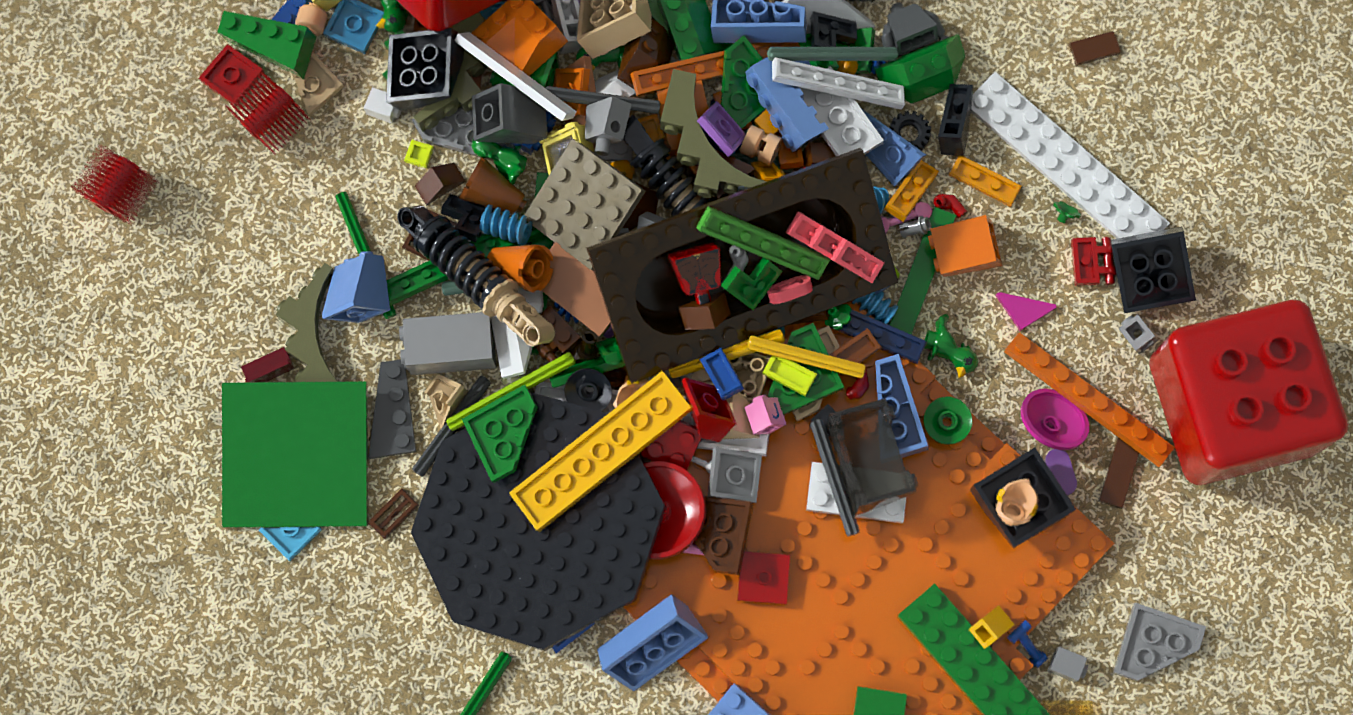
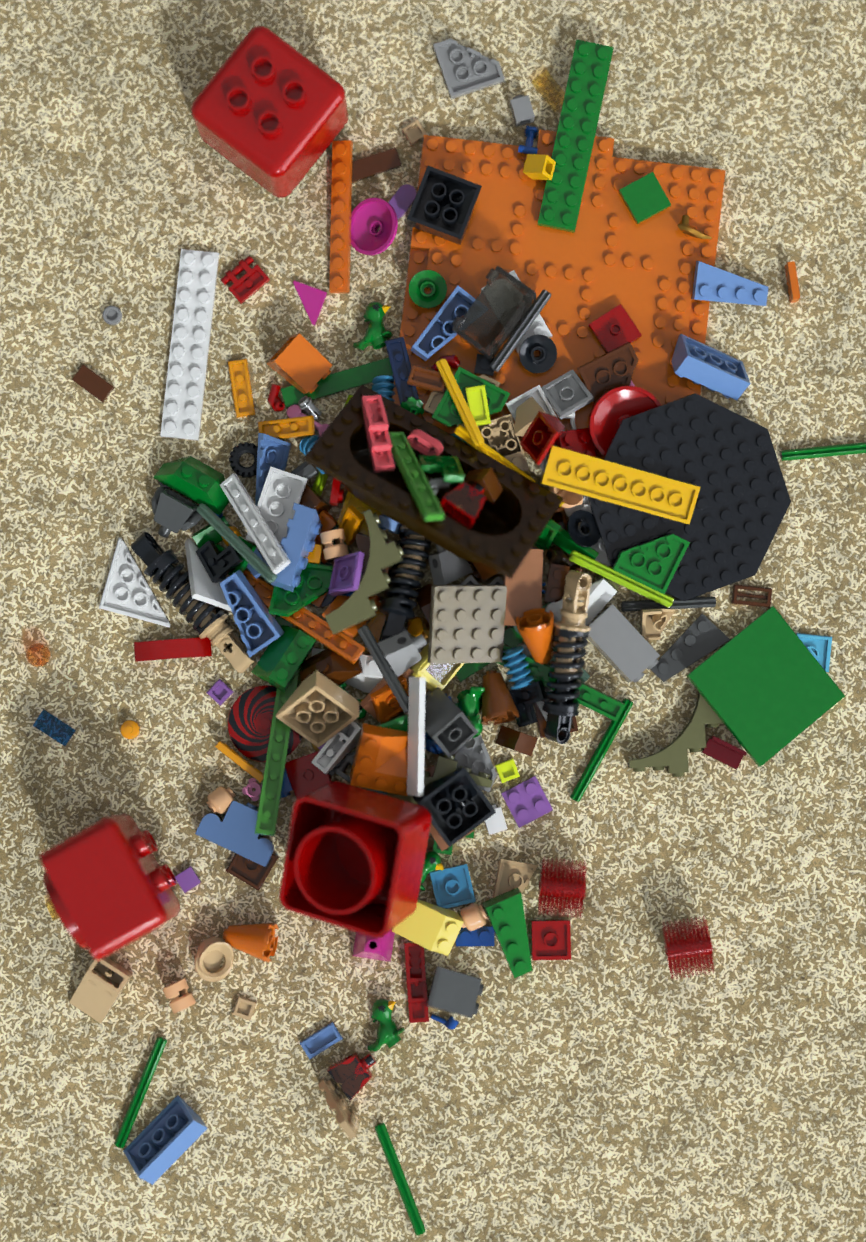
camera: 130 degrees left, 10 degrees up
(357, 289) = (632, 731): medium blue slope -> none
(375, 150) = (527, 801): none -> medium lavender plate
(721, 374) = (512, 446): blue tile -> none
(765, 415) = (517, 400): bright pink brick -> none
(788, 474) = (547, 354): none -> black dish
(956, 120) = (214, 435): black slope -> none
(1017, 502) = (455, 200): light nougat hair -> none
(1066, 211) = (223, 320): green plant -> none
(1125, 540) = (414, 132): none -> tan tile
(1145, 340) = (279, 212): light grey brick -> none
(1150, 113) = (112, 315): none -> light grey tile
(1153, 269) = (224, 234): black slope -> none

